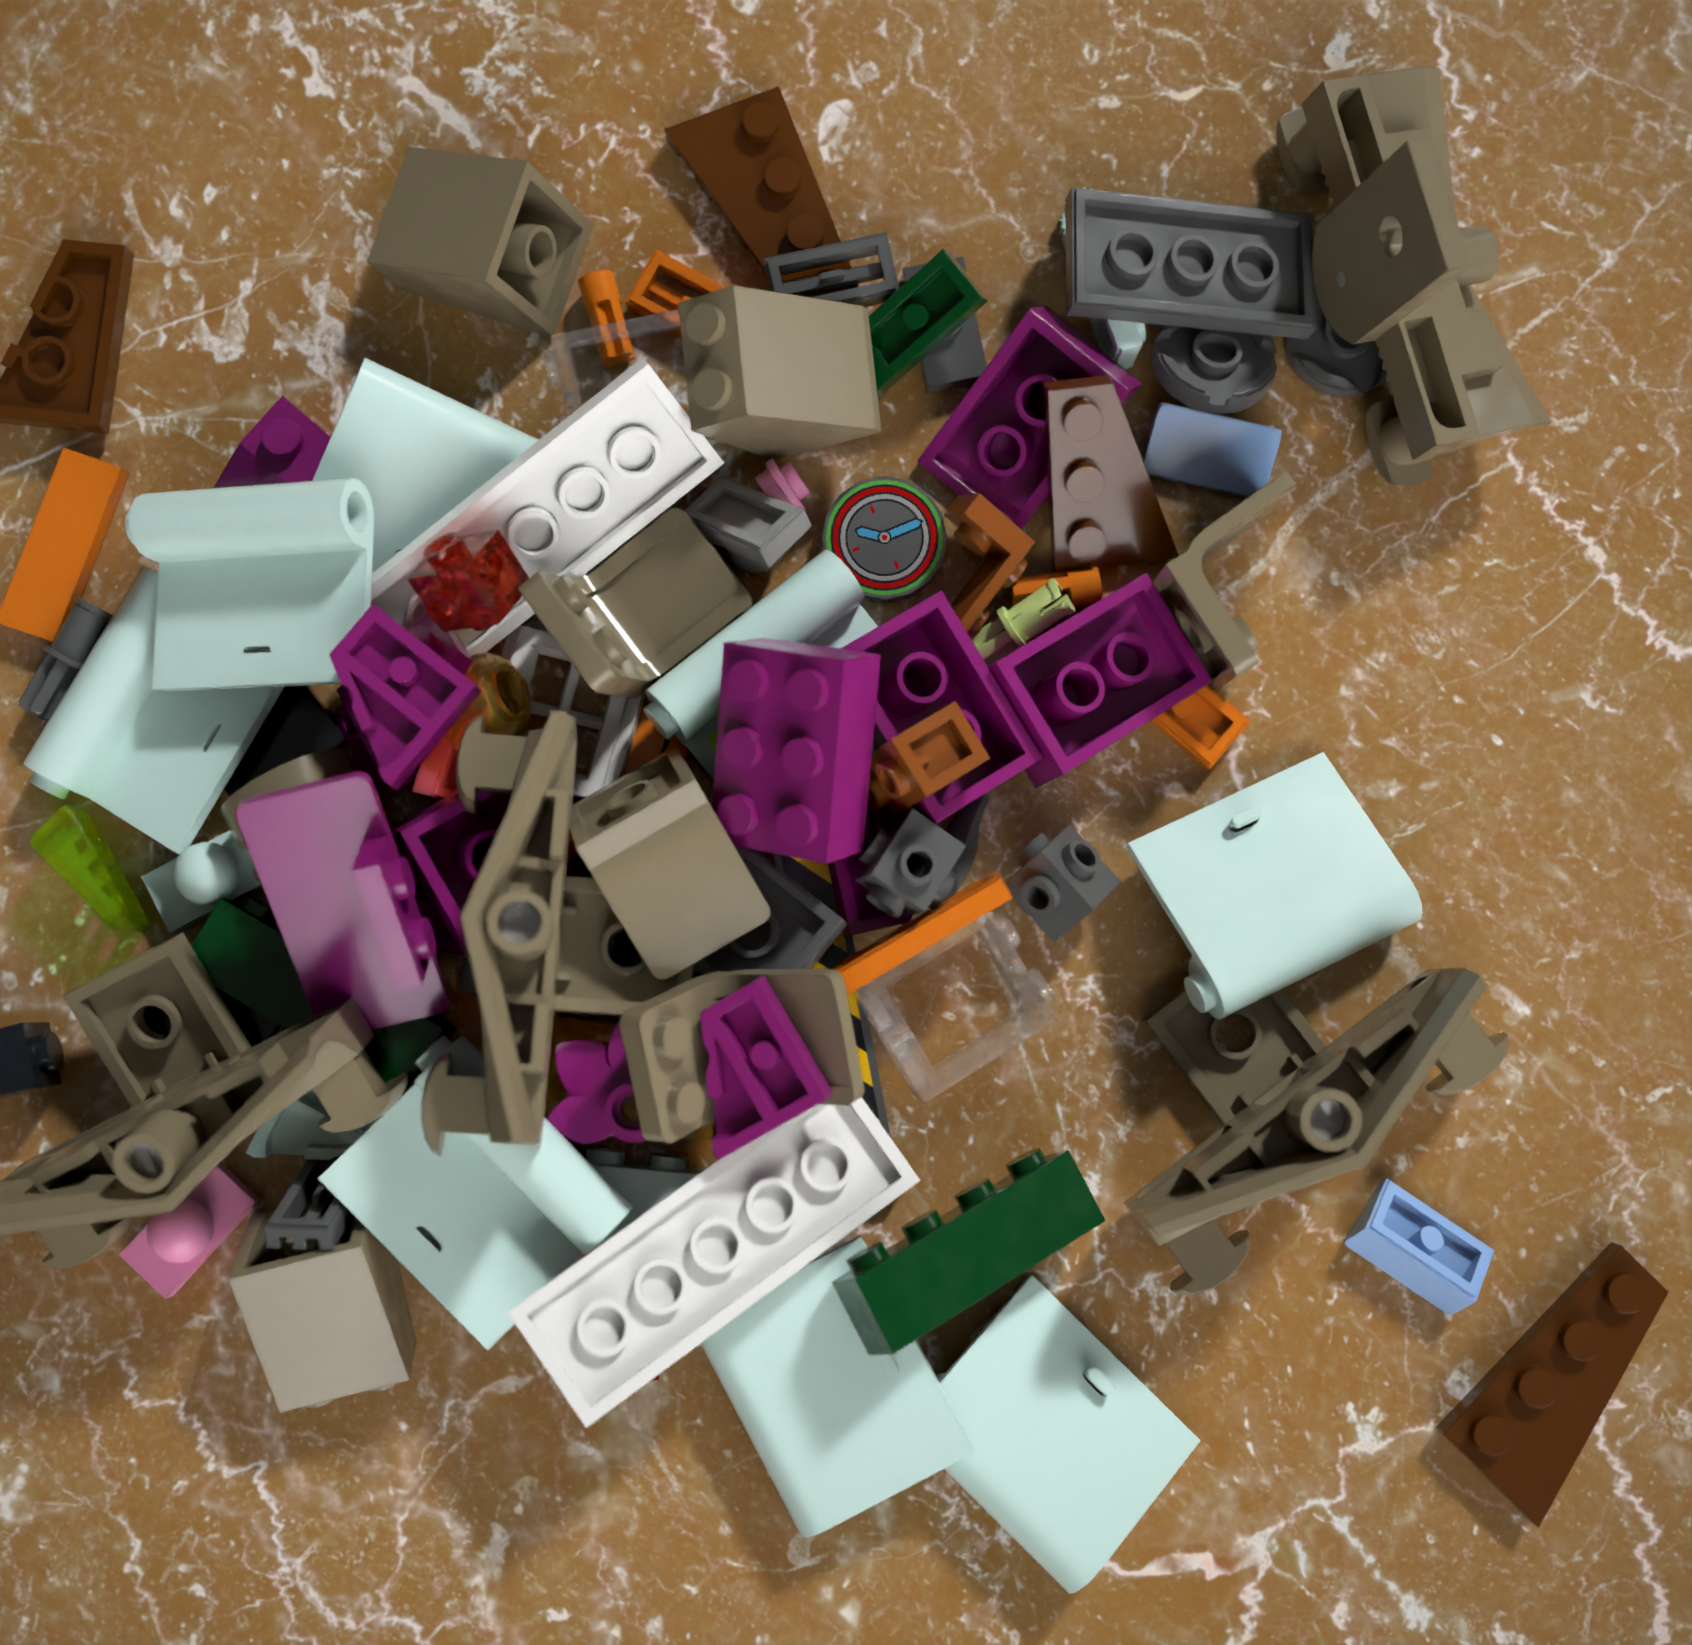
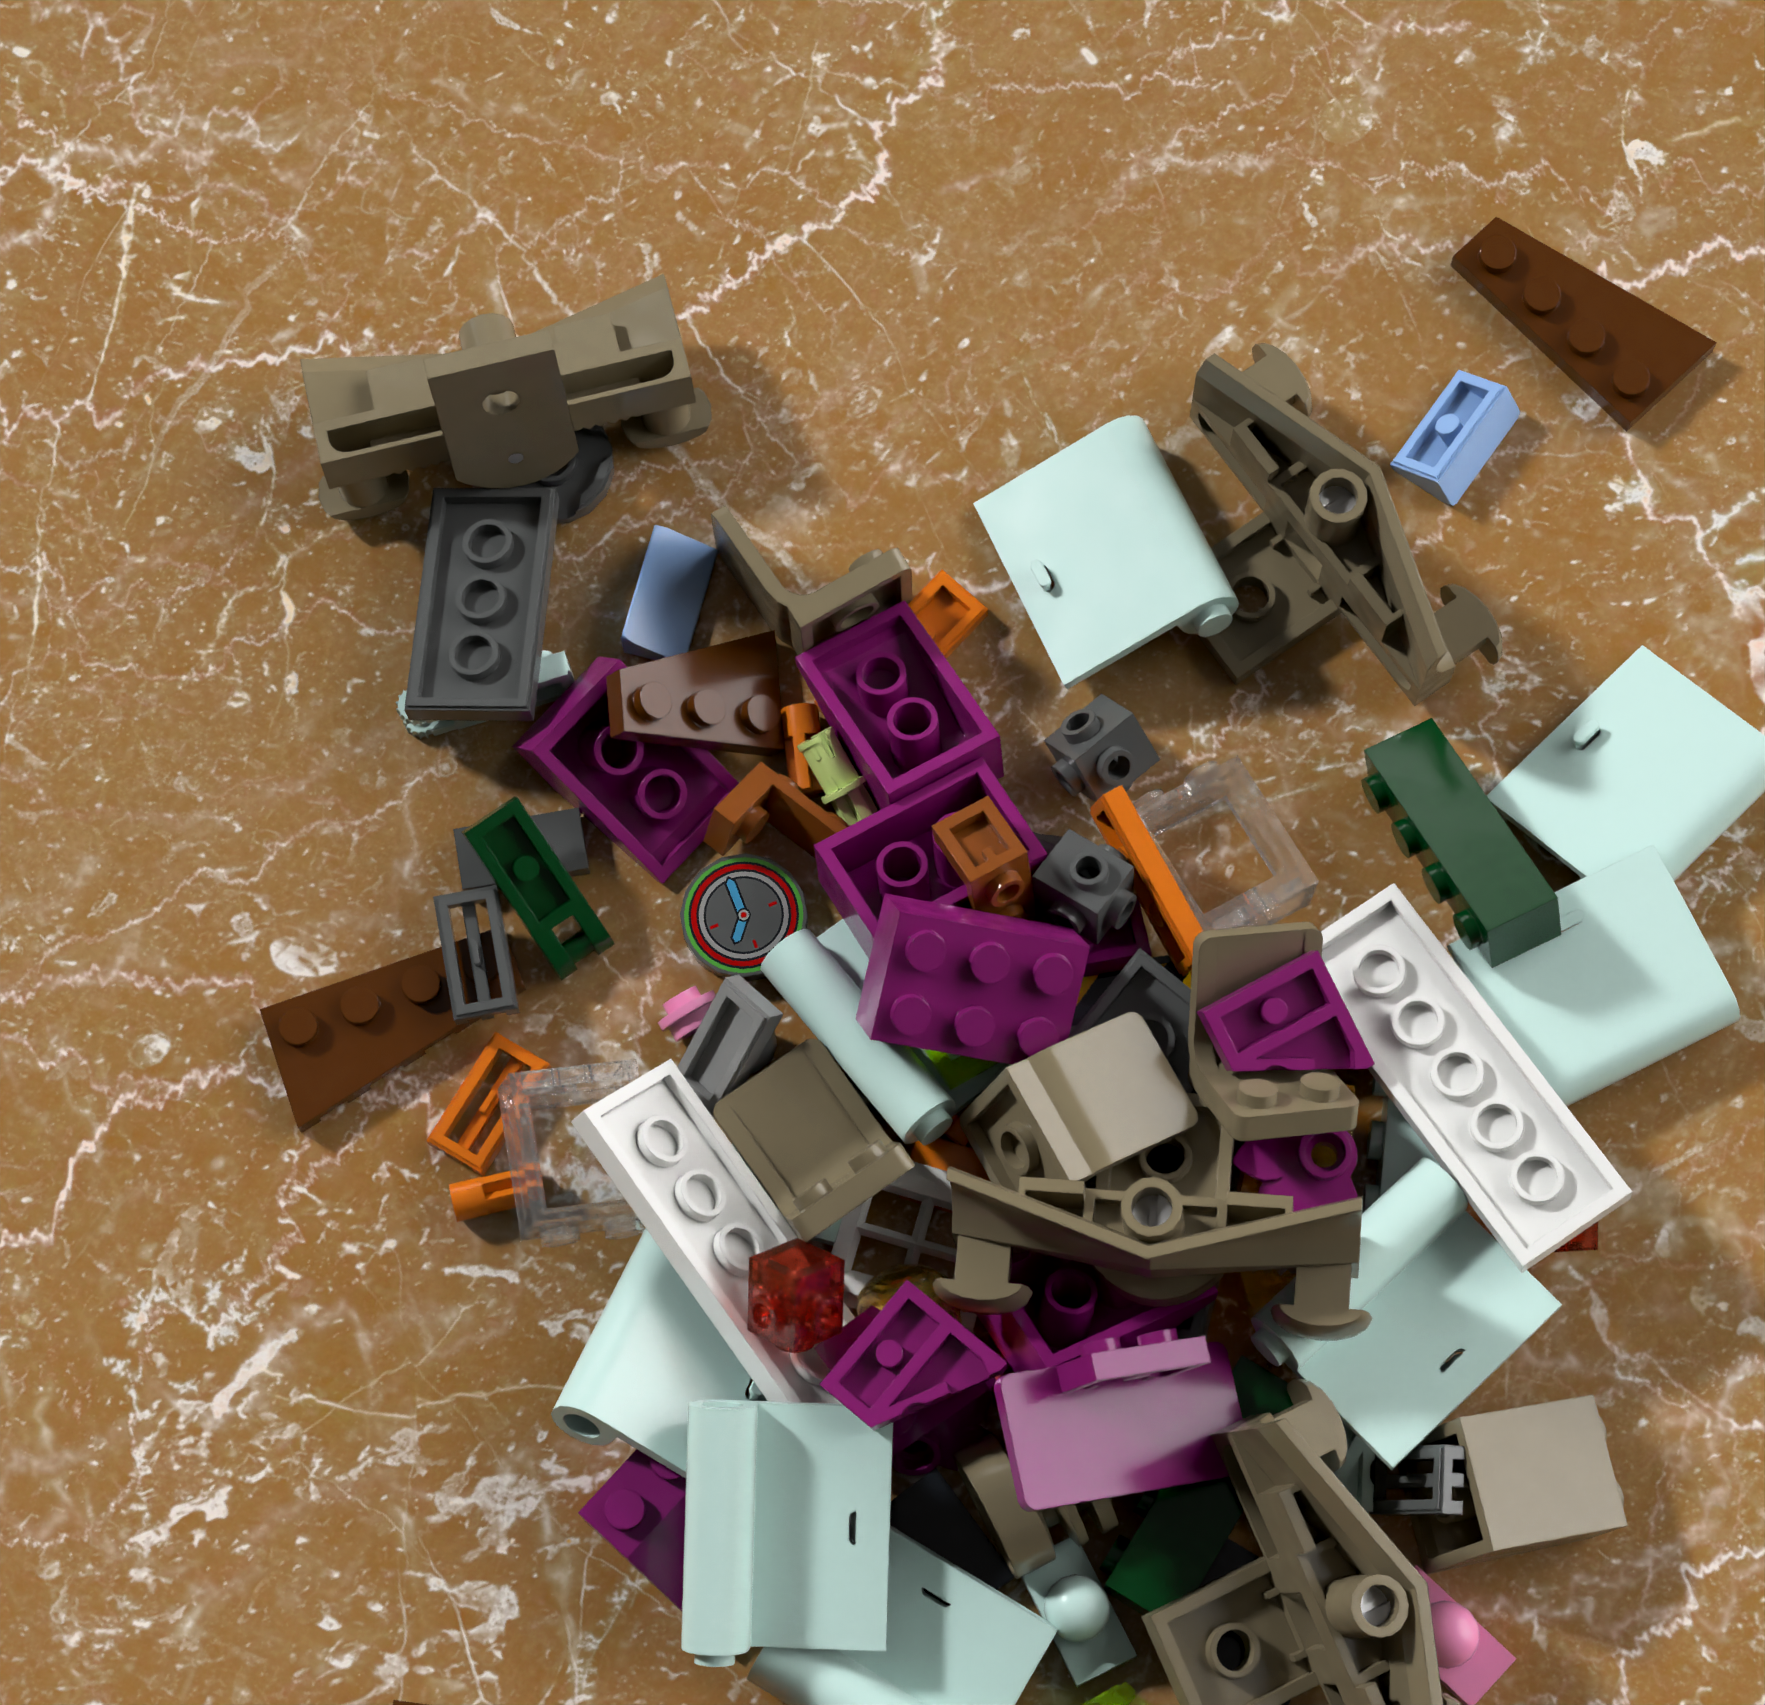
camera: 85 degrees left, 10 degrees down
(481, 237) = (408, 1319): dark tan slope -> none
(778, 370) = (580, 997): dark tan slope -> none
(1213, 367) = (588, 587): dark grey tile -> none

